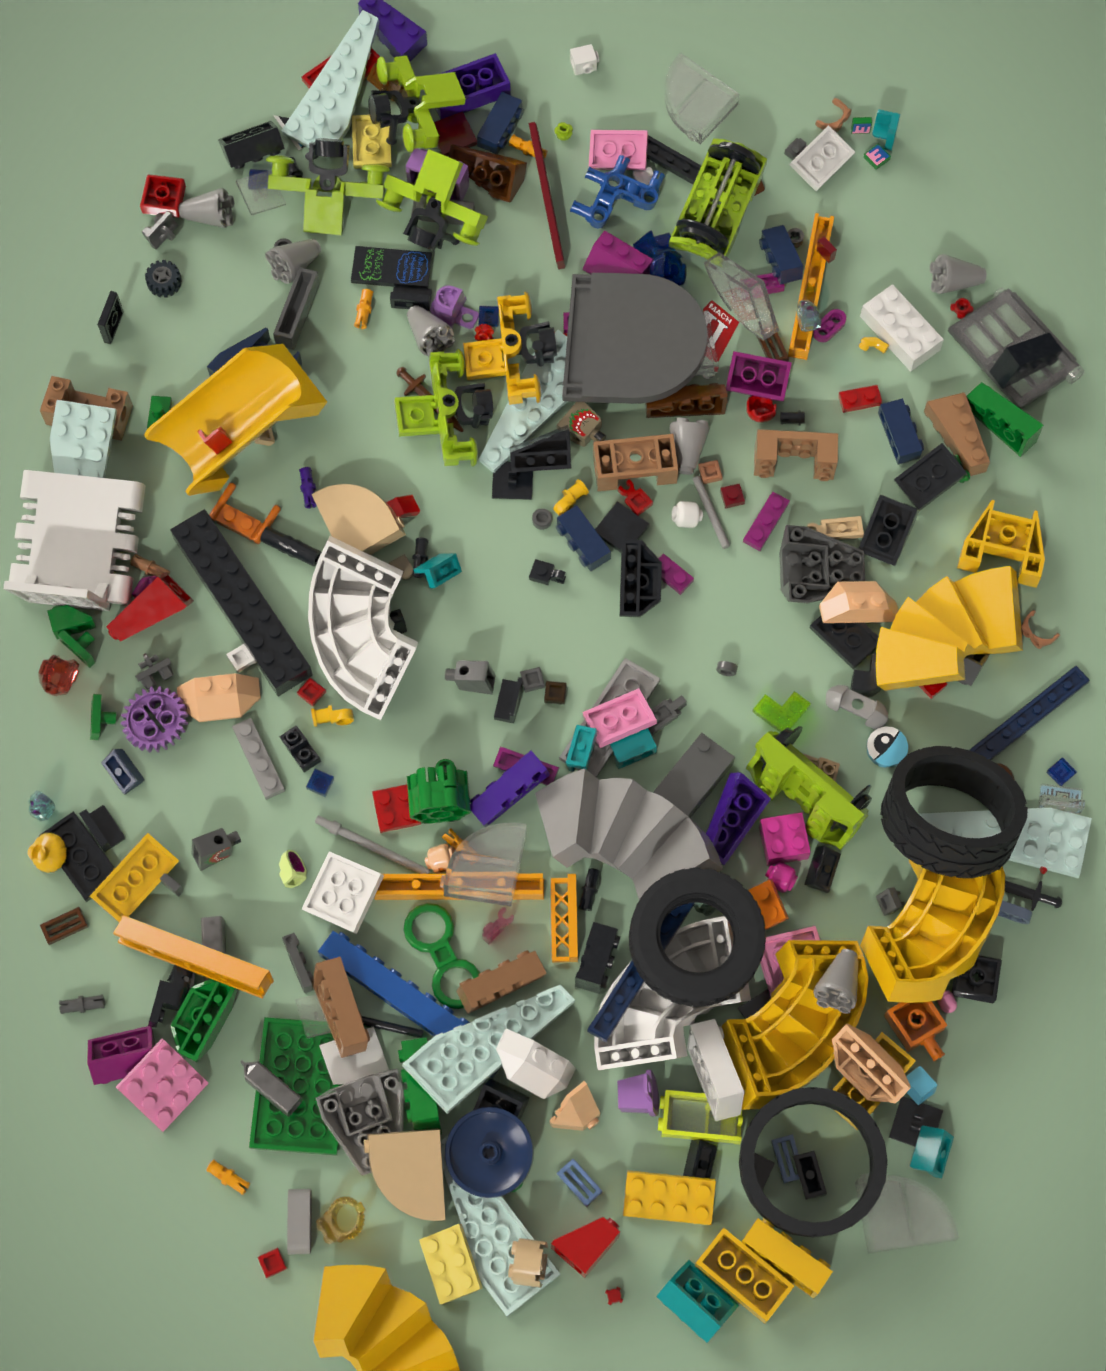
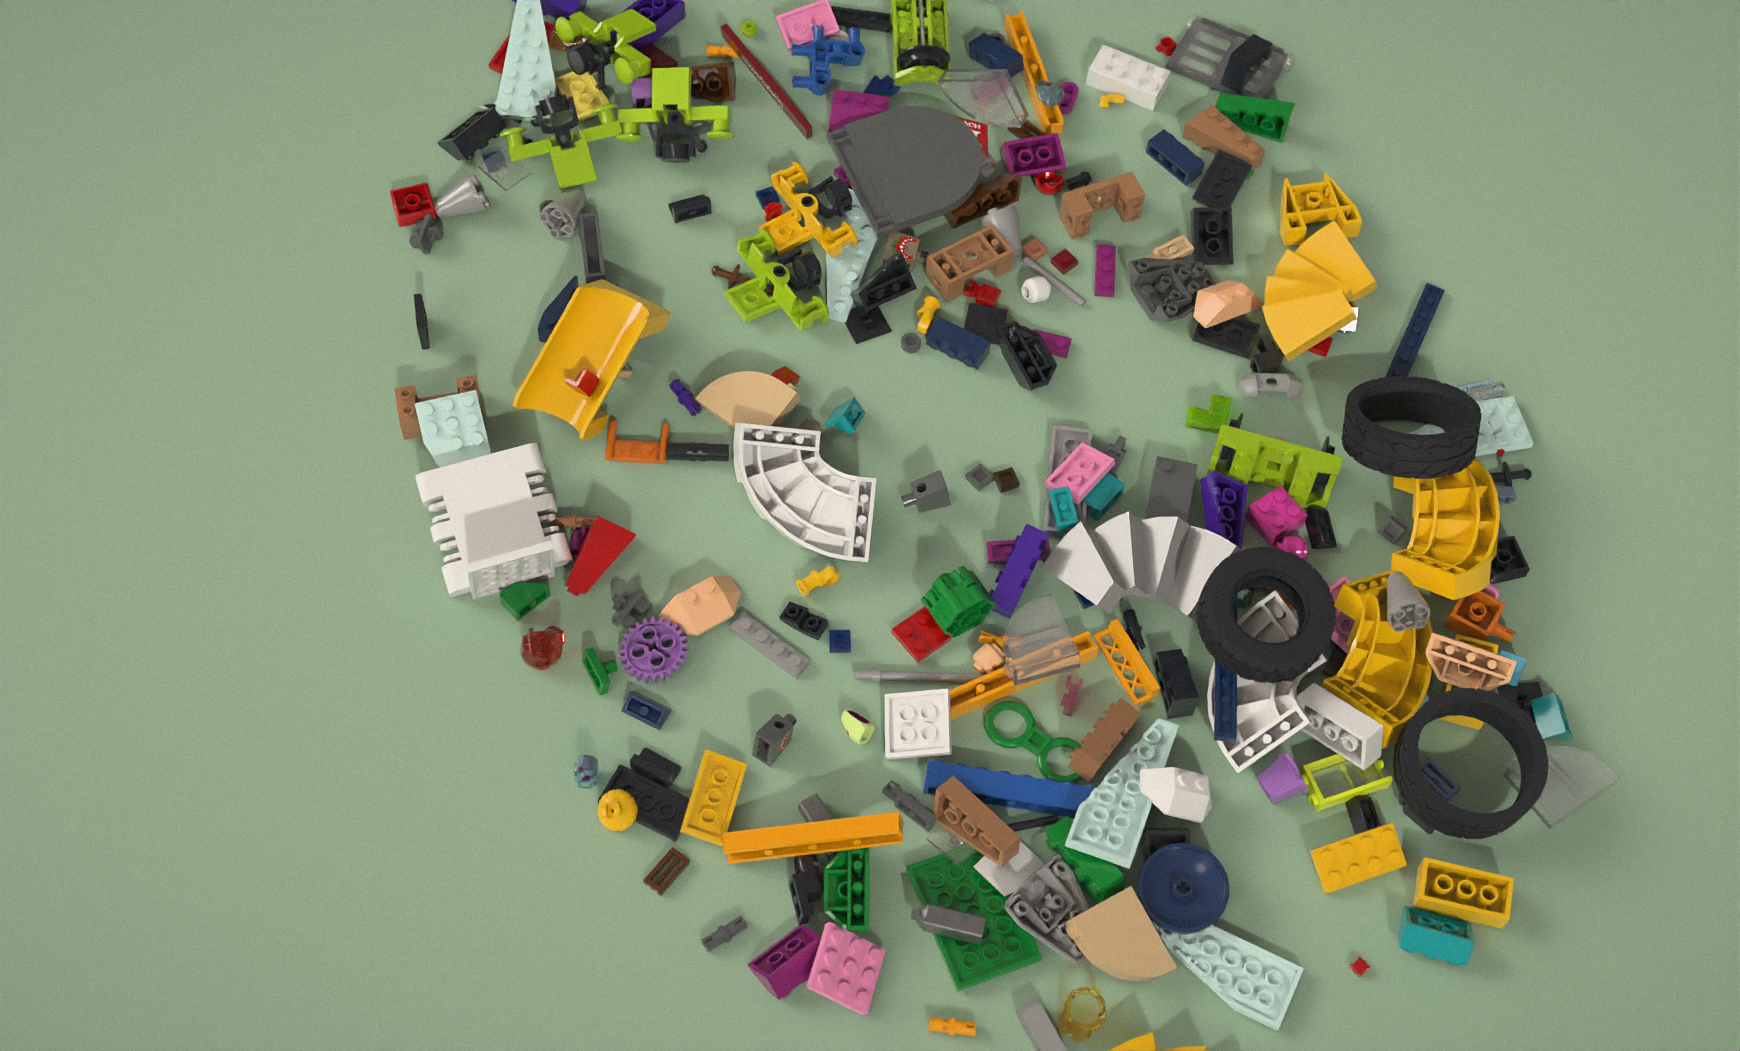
camera: 30 degrees left, 10 degrees down
(78, 647) = (544, 617): green tile -> none
(158, 407) = (508, 387): green tile -> none
(162, 271) = (447, 266): black wheel -> none
(171, 884) = (751, 788): dark grey tile -> none
(240, 658) = (705, 565): white plate -> none
(241, 602) = (680, 516): black brick -> none
(311, 692) = (786, 568): red tile -> none
(364, 308) = (652, 231): light orange pin -> none
(391, 267) = (657, 189): black tile -> none
(420, 555) = (821, 414): black axle -> none
(429, 331) = (724, 225): light grey cone -> none
(450, 307) = (728, 206): medium lavender container -> none
(450, 1264) = (1201, 1006): light yellow plate -> none
(500, 123) = (690, 40): dark blue brick -> none
(508, 700) = (970, 502): black panel -> none
(528, 1262) = (1276, 966): tan brick -> none
(544, 572) = (939, 386): black plate -> none
(566, 1168) = (1268, 890): medium blue tile -> none
(577, 1110) = (1241, 816): light nougat wedge -> none
(587, 1244) = (1316, 931): red slope -> none
(669, 266) = (905, 97): clear blue cylinder -> none
(726, 668) = (1143, 399): dark grey tile -> none
(787, 1258) = (1494, 856): yellow brick -> none
(810, 1175) = (1465, 783): black slope -> none
(826, 249) = (1034, 36): dark red tile -> none
(860, 398) = (1125, 146): red plate -> none
(887, 746) = (1314, 408): tile -> none
(954, 274) = (1145, 21): light grey cone -> none
(1036, 641) = (1388, 275): nougat cap -> none
(1061, 772) = (1466, 370): clear blue tile -> none

